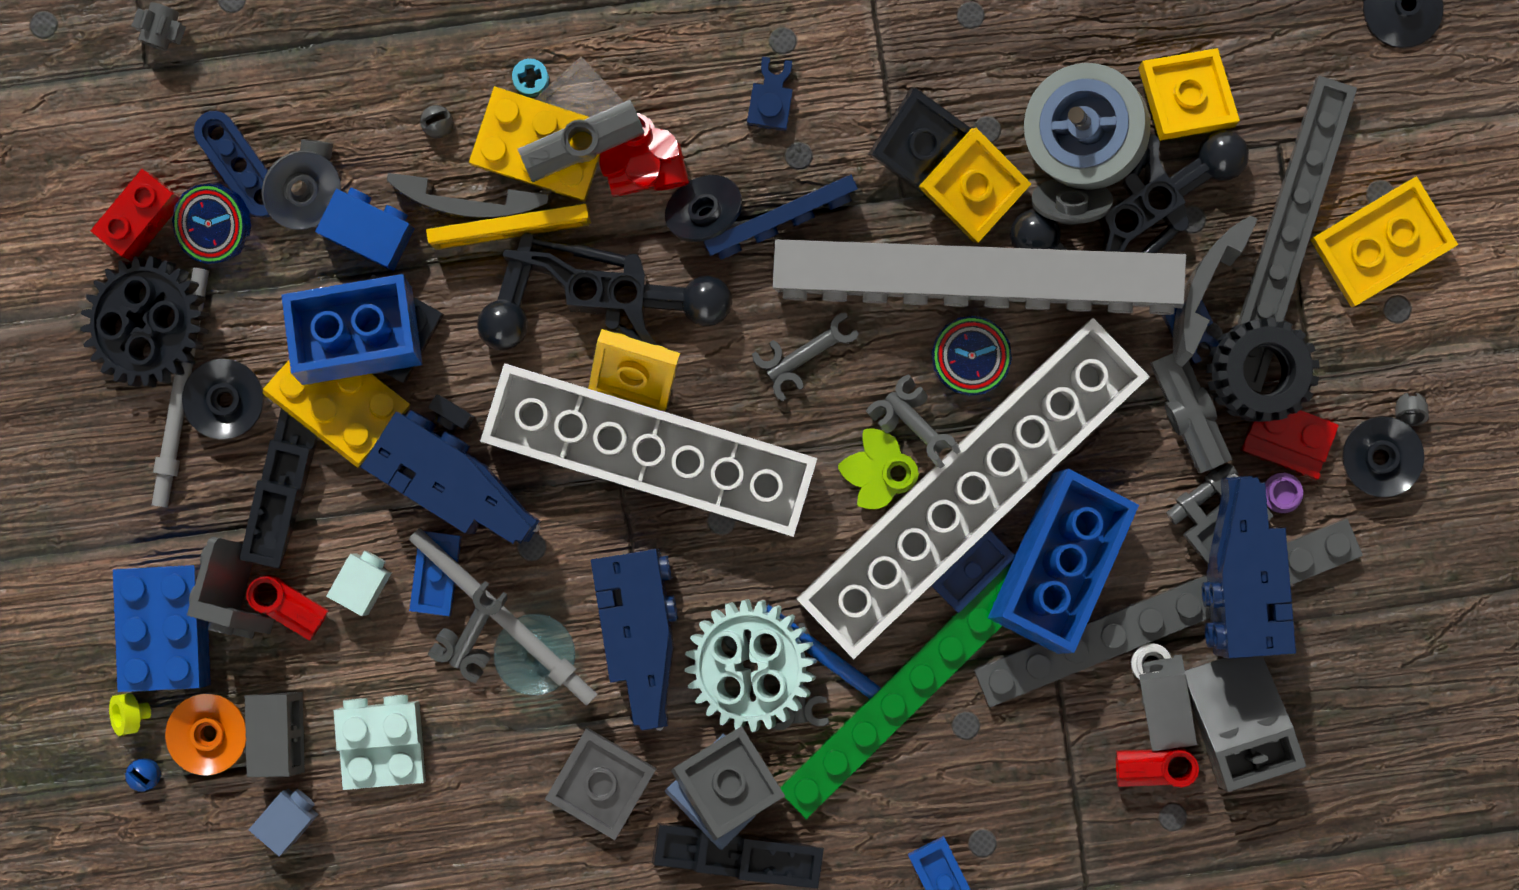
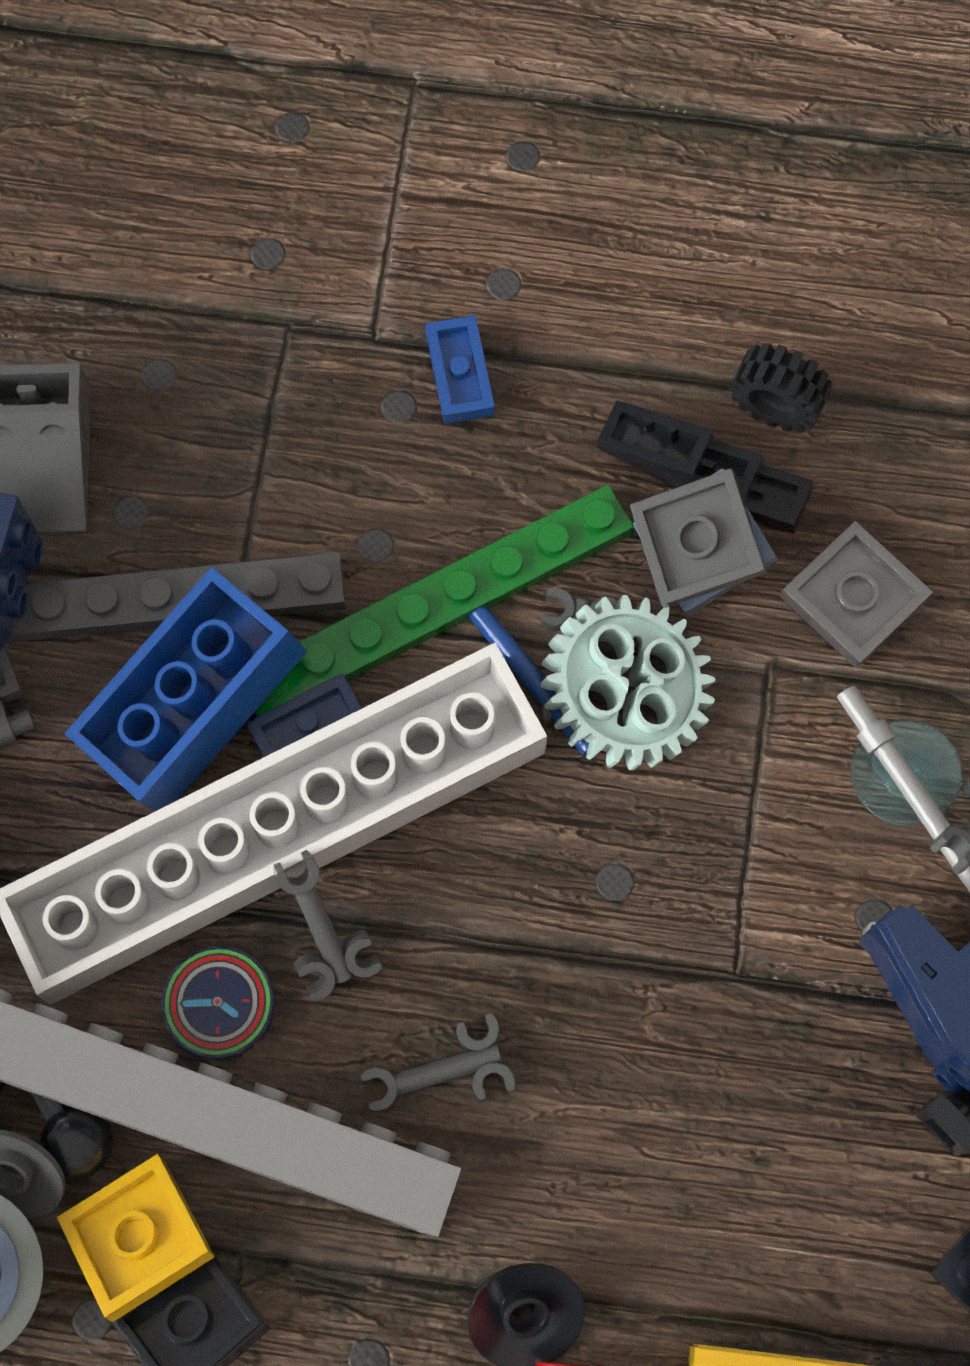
camera: 165 degrees left, 15 degrees down
(505, 324) = (848, 1226): black piece -> none
(633, 370) = (685, 1107): yellow plate -> none
(638, 629) = (765, 764): dark blue piece -> none
(648, 450) = (694, 994): white brick -> none
(797, 211) = (395, 1275): dark blue plate -> none
(873, 468) = (396, 890): lime plate -> none
(1143, 652) = (113, 539): white plate -> none
(1151, 768) = (161, 429): red piece -> none
(1167, 704) = (115, 490): dark grey hinge -> none

